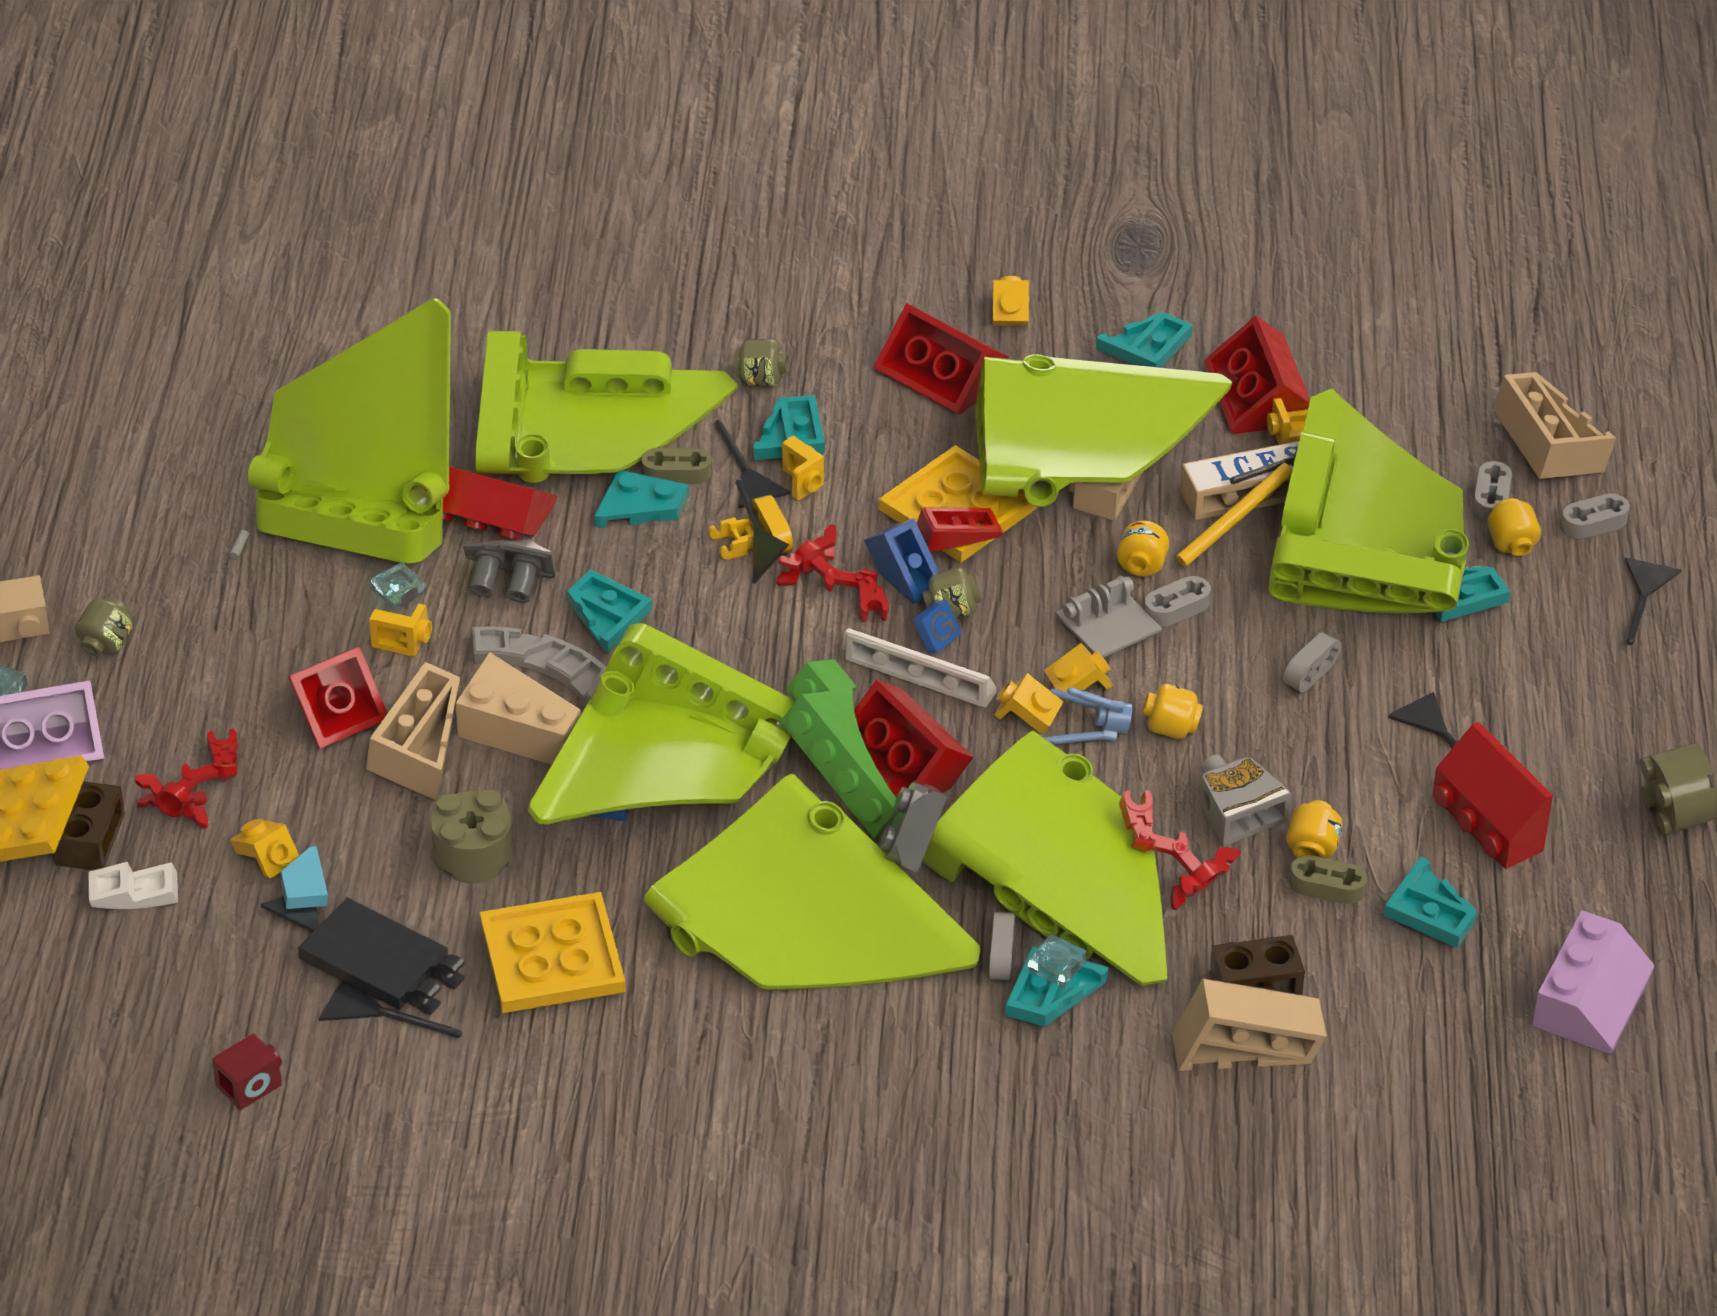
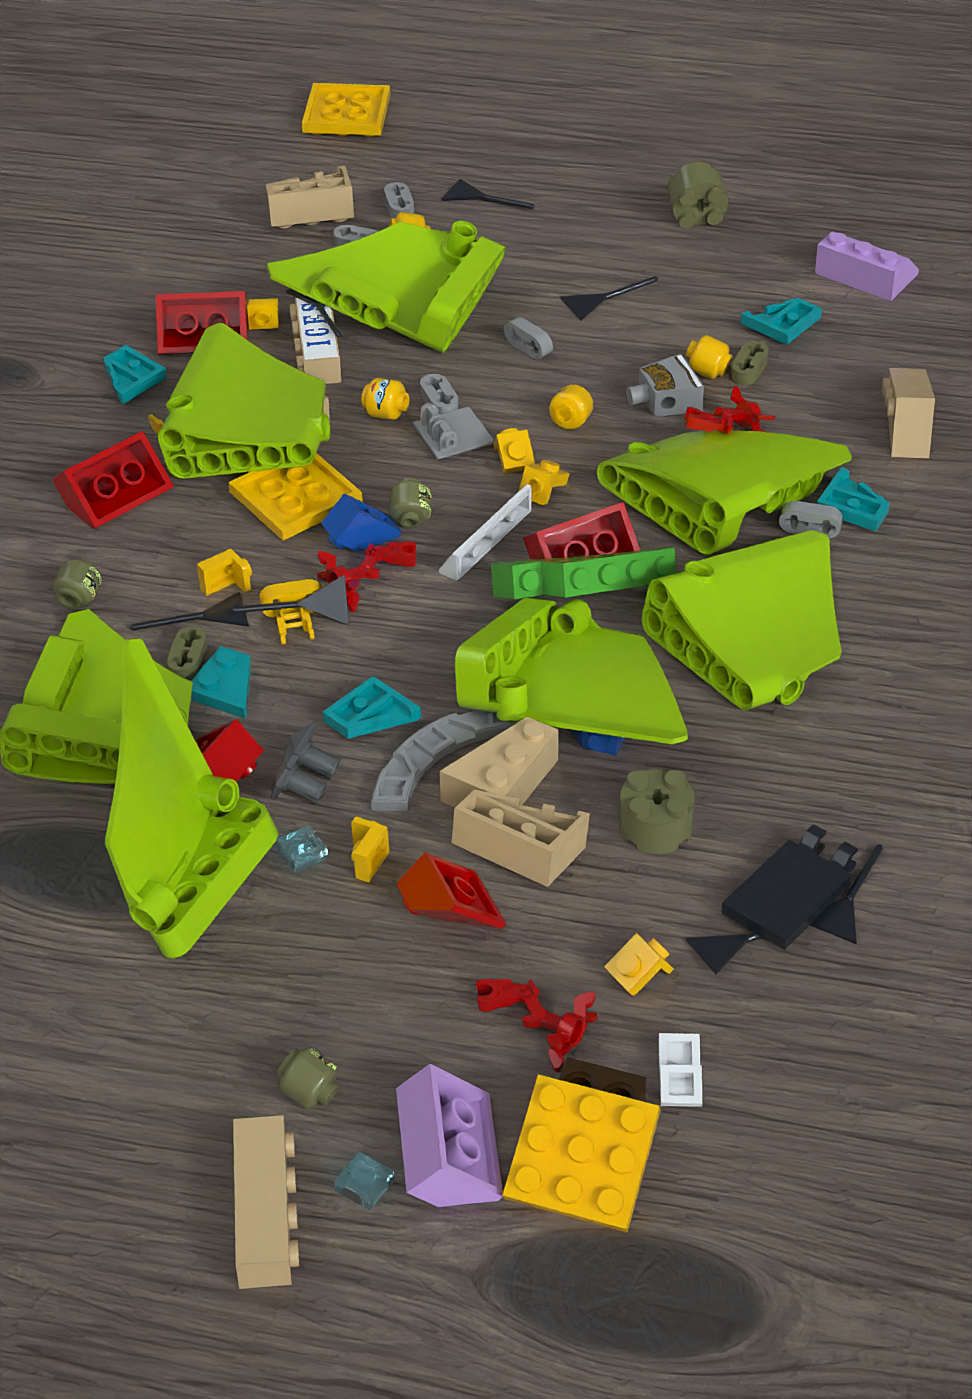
camera: 80 degrees left, 0 degrees up
(239, 544) = (196, 974): light grey piece -> none
(247, 1071) = (937, 985): dark red brick -> none
(304, 881) = (690, 937): medium azure tile -> none
(552, 952) = (796, 775): yellow plate -> none
(791, 417) = (167, 577): teal wing -> none
(913, 825) = (704, 527): dark grey slope -> none
(937, 626) = (445, 516): blue tile -> none
(957, 527) = (337, 480): red slope -> none
(1010, 301) = (50, 436): yellow bracket -> none
(1057, 960) = (839, 486): clear light blue plate -> none
(1110, 715) = (567, 440): medium blue plant -> none
(1234, 515) = (357, 341): yellow bar -> none
(1259, 963) = (846, 401): dark brown brick -> none
(1493, 797) = (694, 269): red slope -> none

